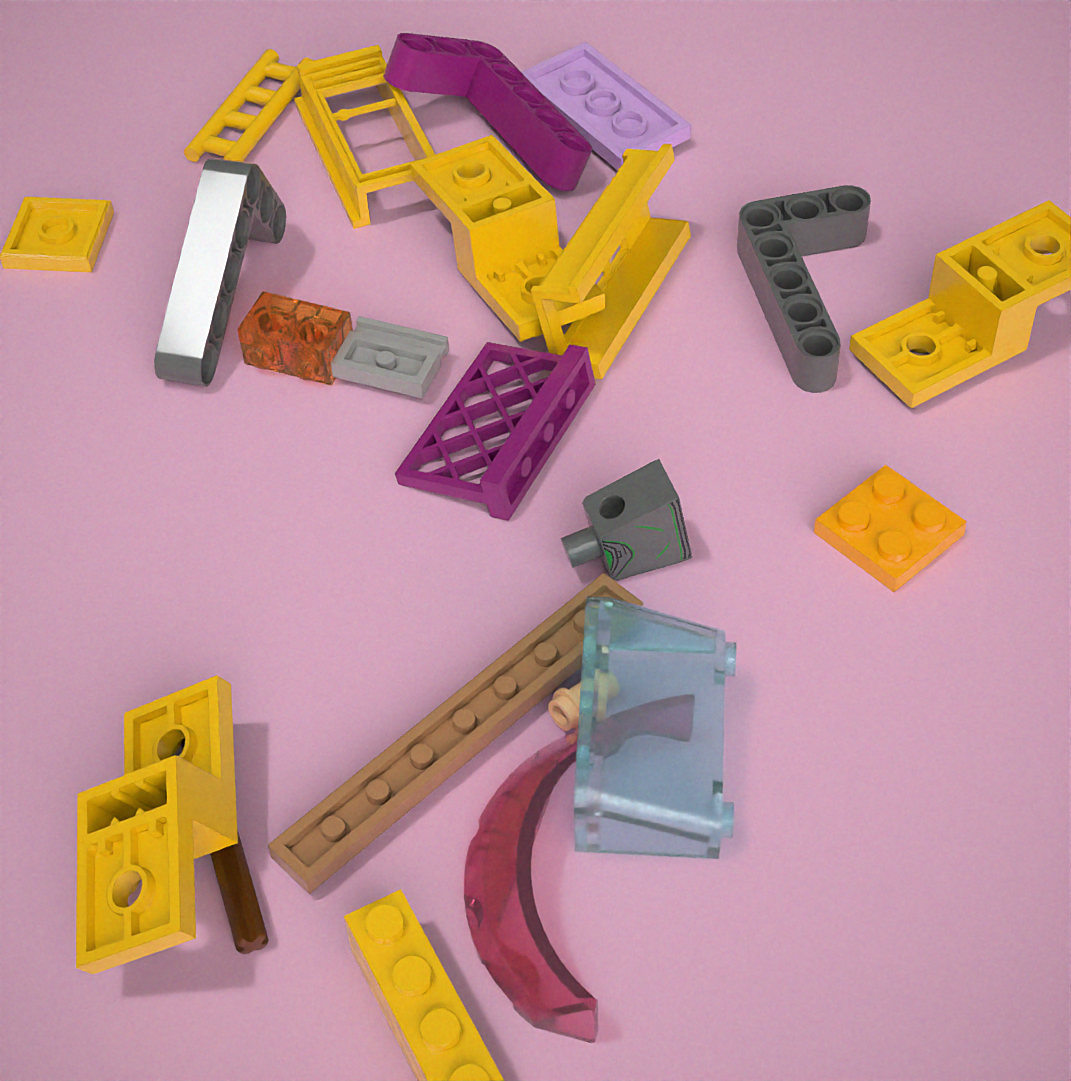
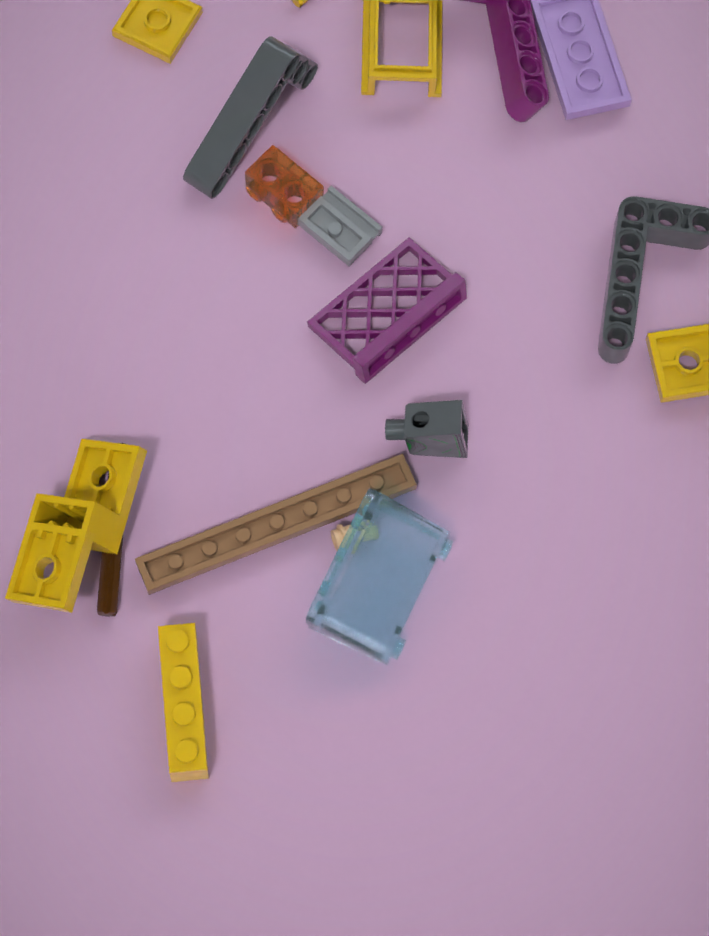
camera: 15 degrees right, 20 degrees up
(500, 230) = (453, 159): yellow bracket -> none
(503, 906) = (255, 632): clear pink windscreen -> none
(631, 279) = (515, 213): yellow piece -> none
(889, 527) = (598, 487): light orange plate -> none

